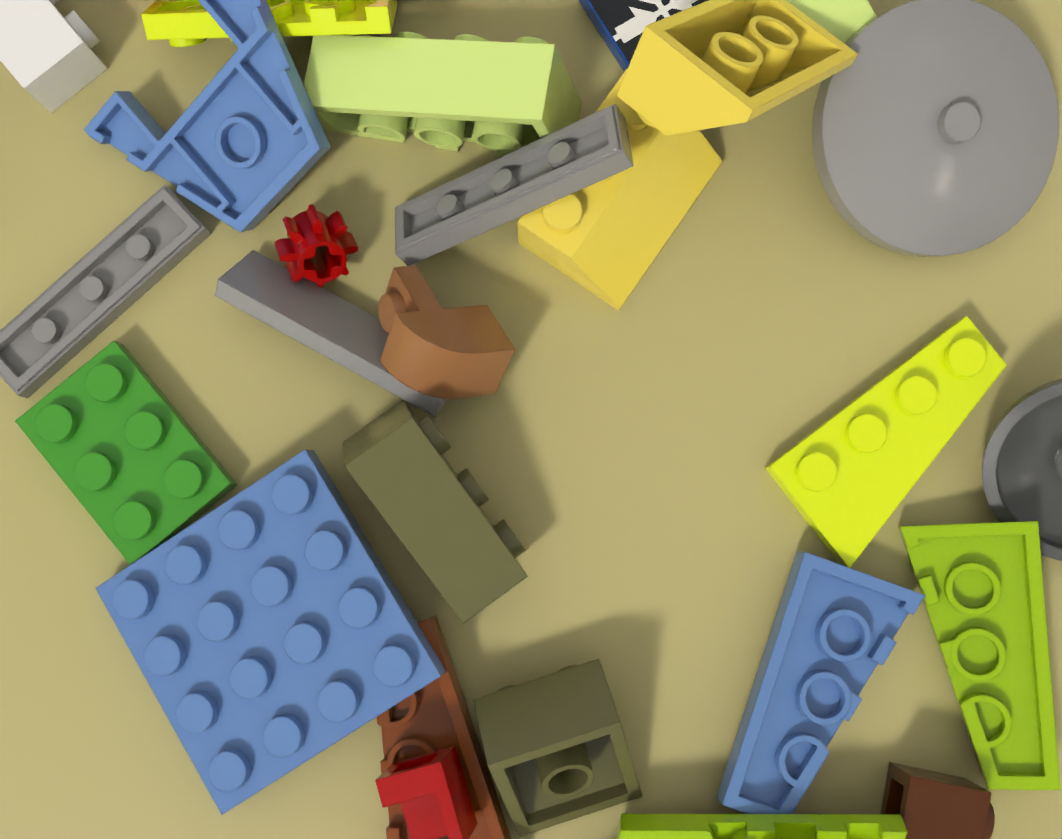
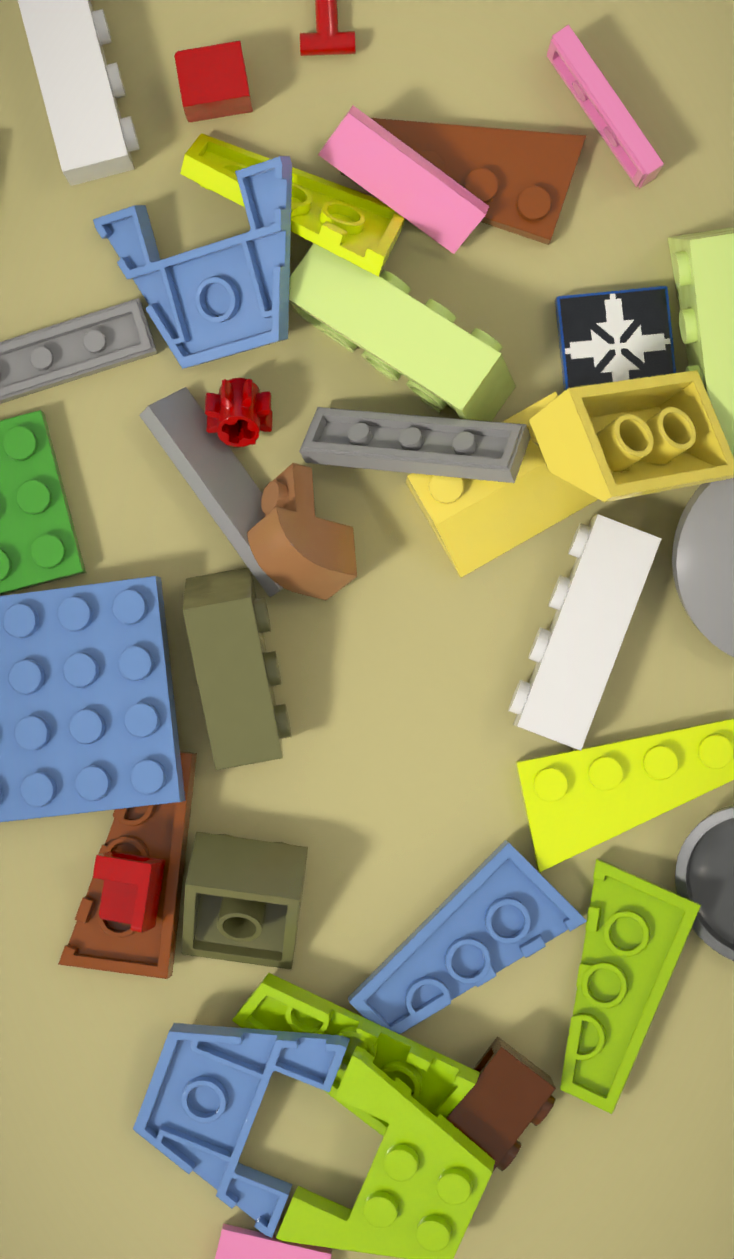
camera: 20 degrees right, 5 degrees up
(773, 300) = (585, 632): none -> white brick

